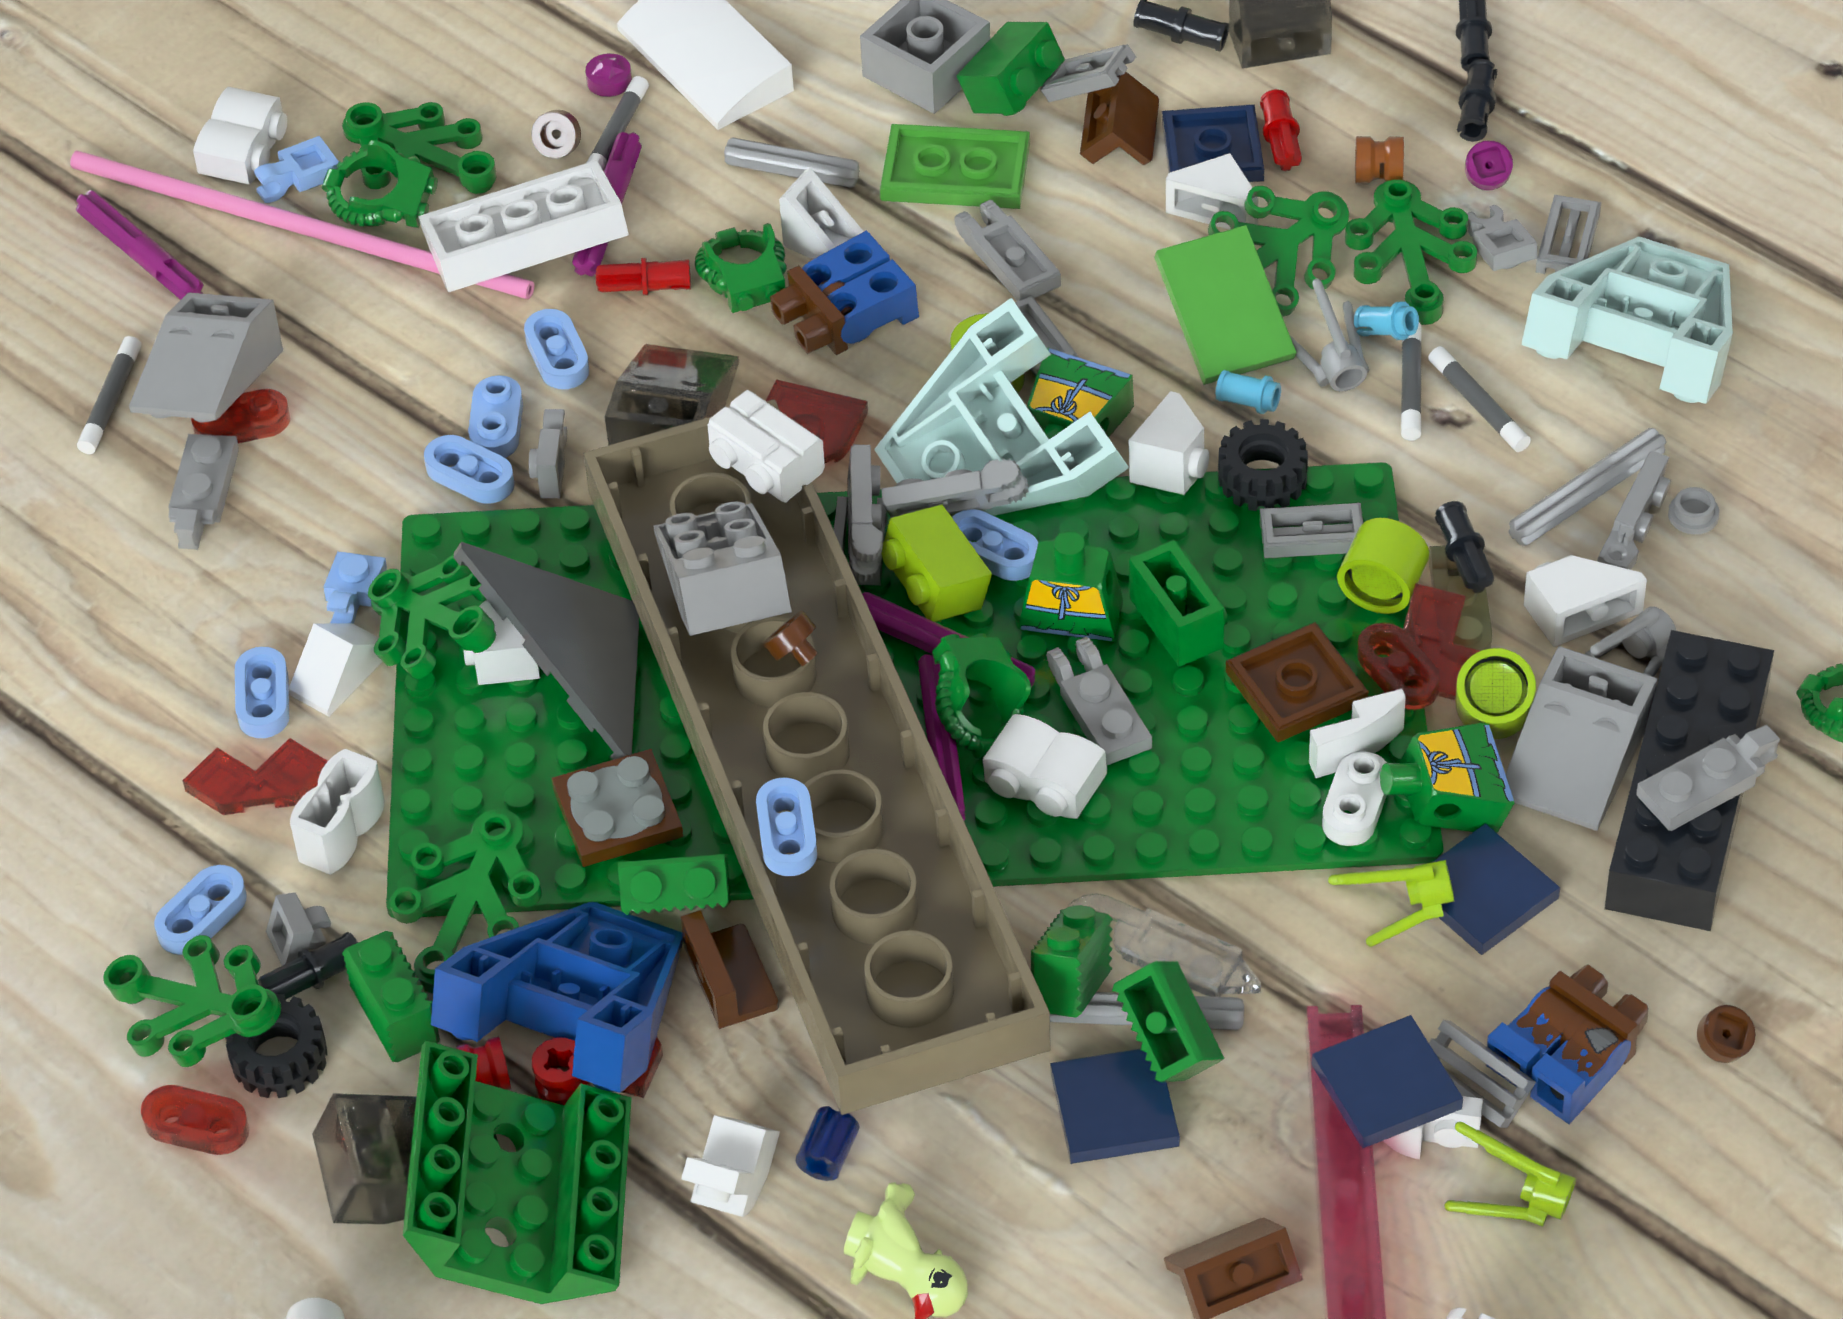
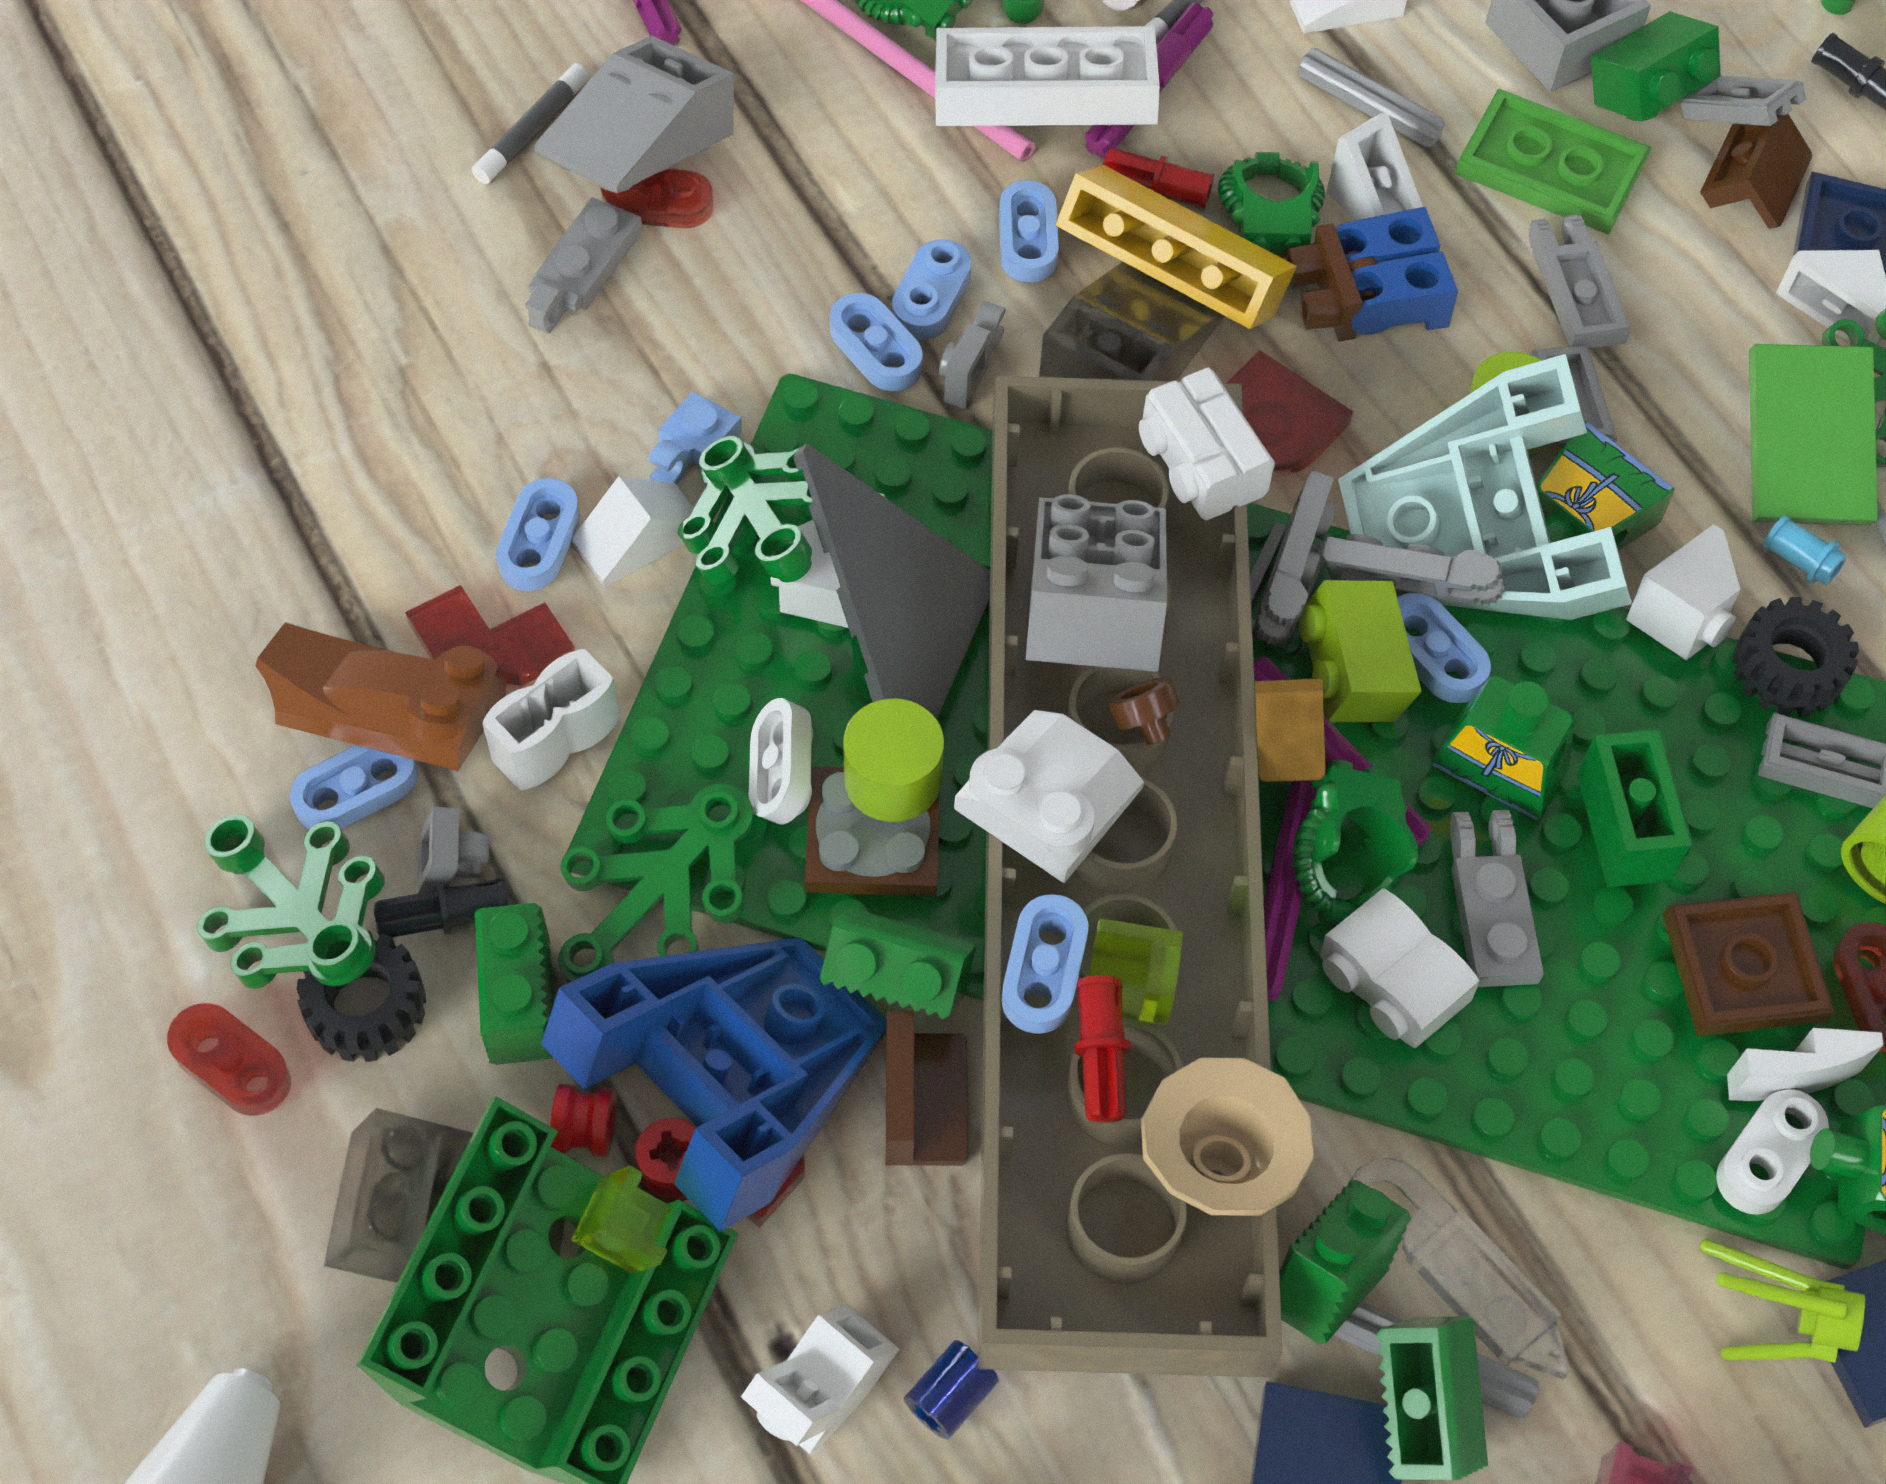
camera: 15 degrees right, 10 degrees up
(197, 840) = (381, 696): none -> dark orange slope
(527, 780) = (780, 761): none -> white plate
(545, 1111) = (623, 1222): none -> clear neon green panel
(616, 744) = (893, 759): none -> lime piece
(680, 321) = (1175, 246): none -> yellow brick
(743, 718) = (1049, 791): none -> white slope
(849, 864) = (1102, 1047): none -> red axle
(852, 809) = (1146, 963): none -> clear neon green panel
(903, 622) = (1290, 730): none -> pearl gold slope
(959, 883) = (1227, 1137): none -> tan hat

